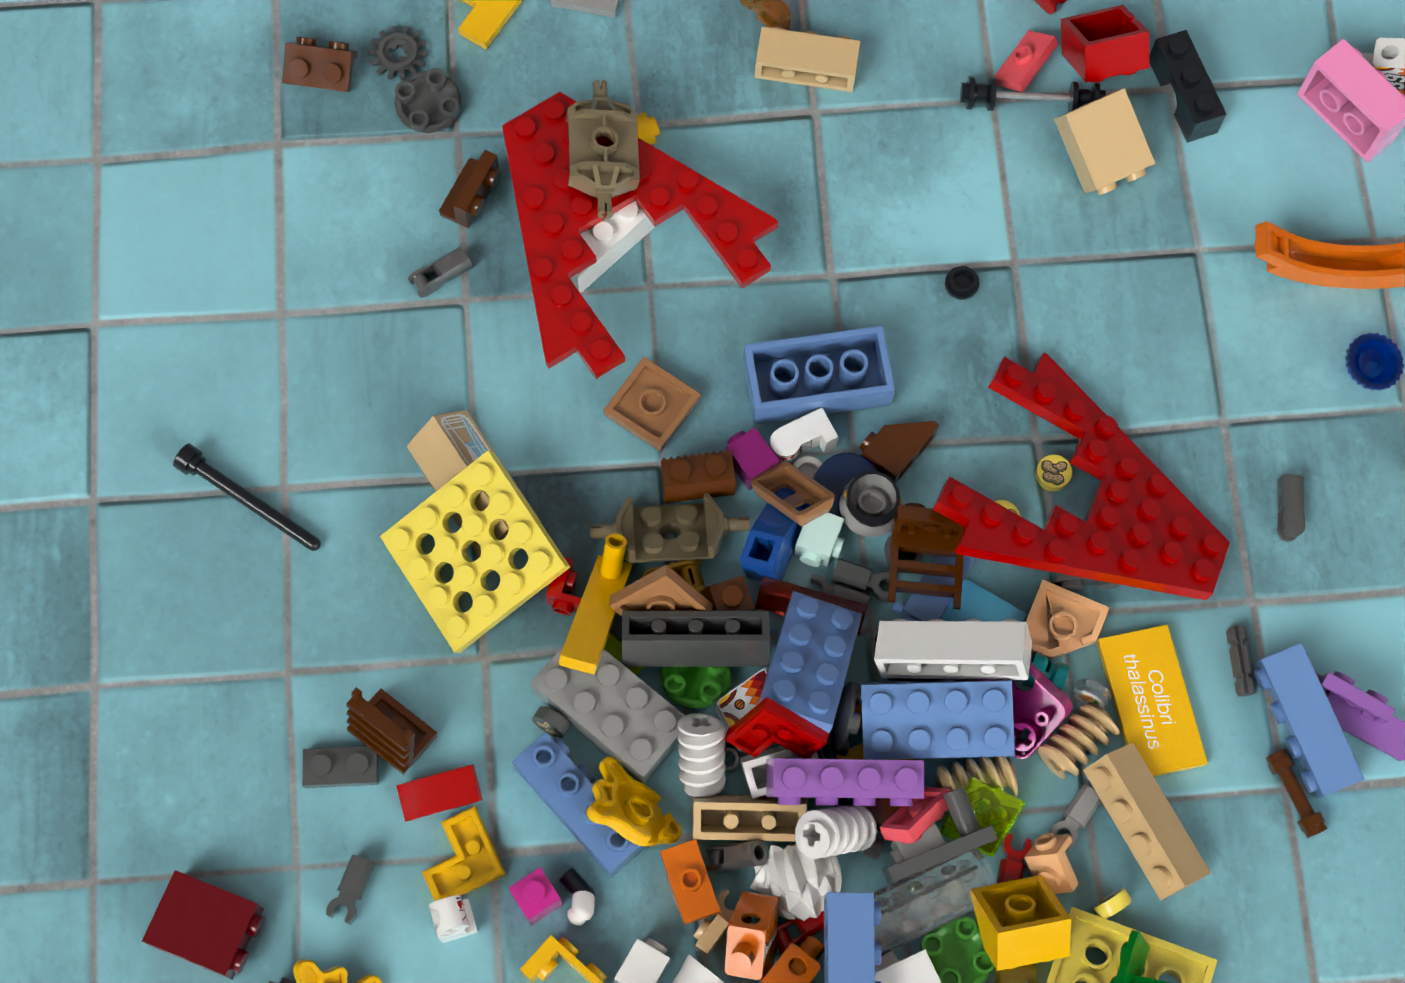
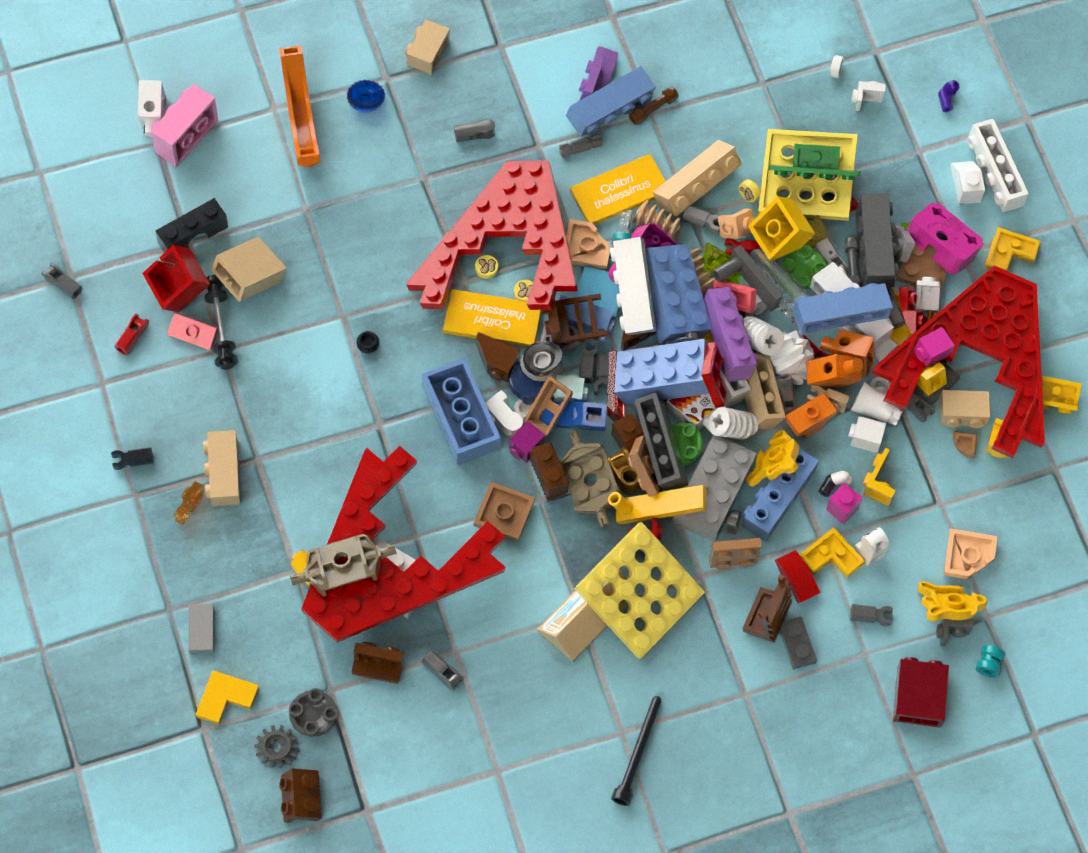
camera: 105 degrees left, 5 degrees down
(489, 714) = (734, 553): none -> medium nougat plate
(969, 446) = (492, 315): none -> yellow tile

